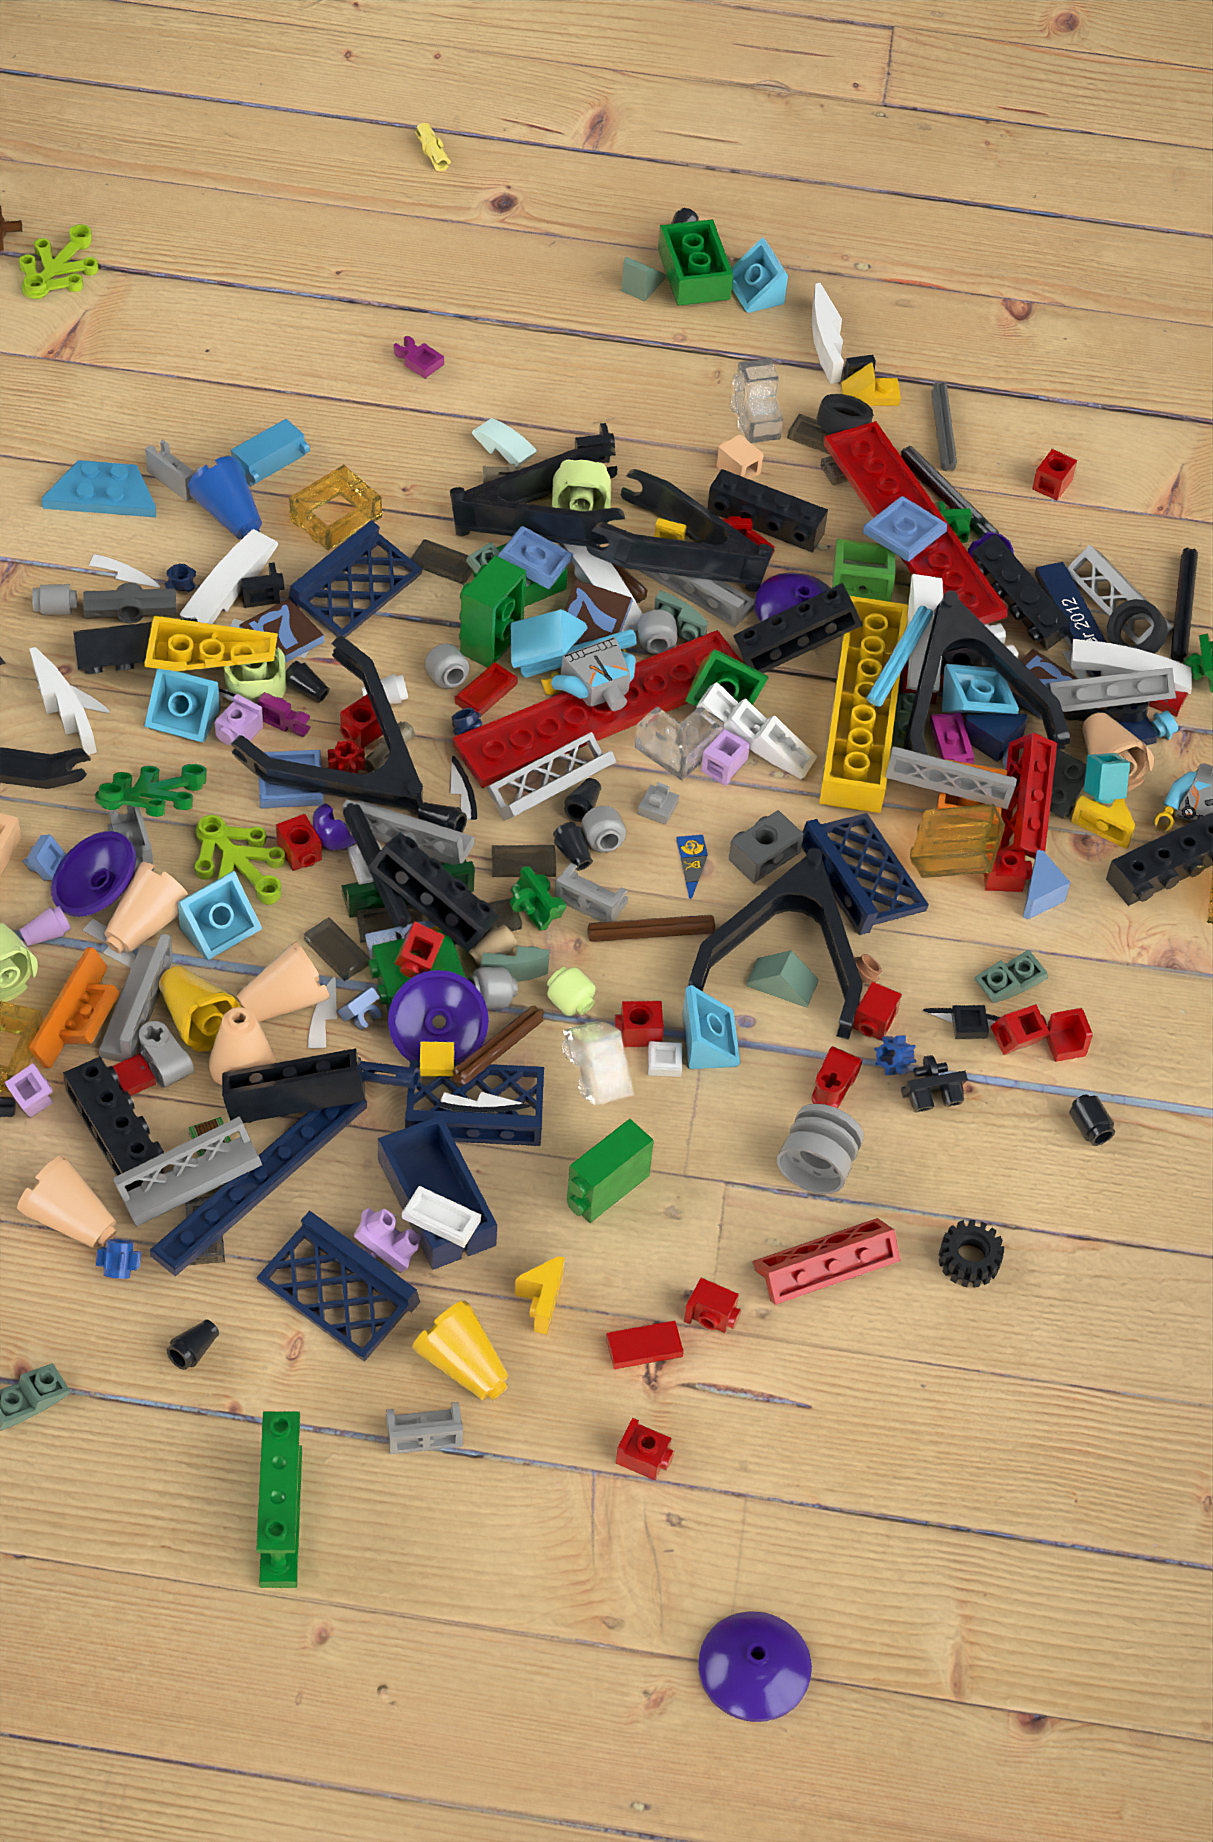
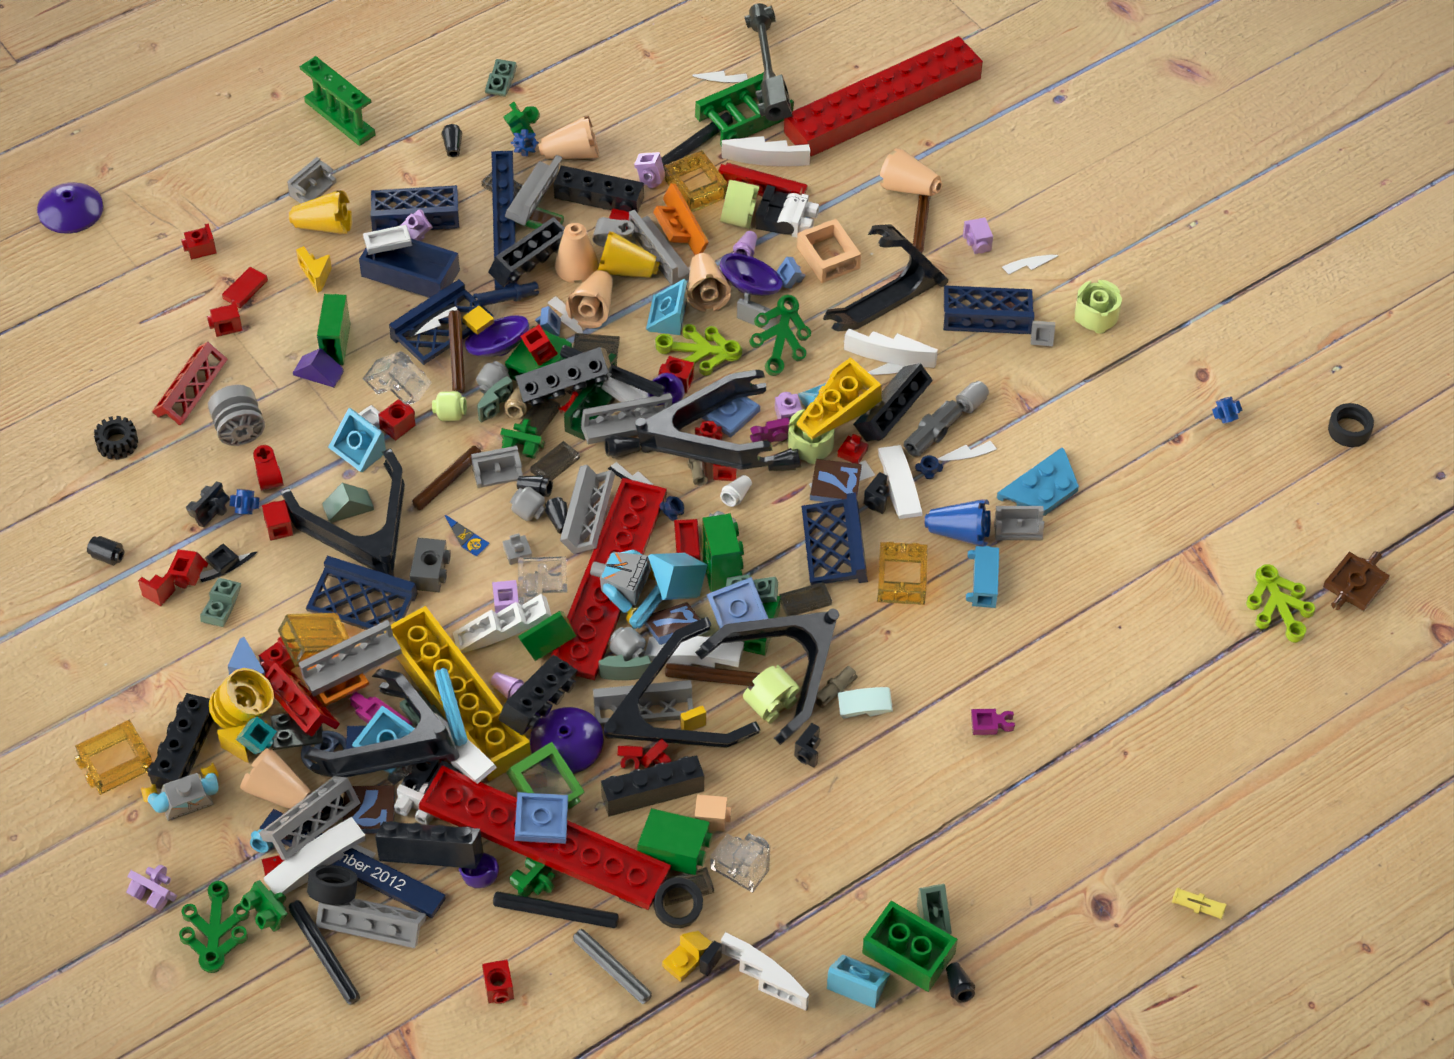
camera: 140 degrees right, 0 degrees up
(94, 1283) = (521, 120): none -> green hips
(670, 1166) = (319, 368): none -> dark purple slope
(799, 457) = (675, 840): none -> green brick
(804, 683) = (506, 684): none -> lavender cone
(868, 968) = (299, 540): nougat plate -> none
(1088, 831) = (241, 698): none -> yellow wheel

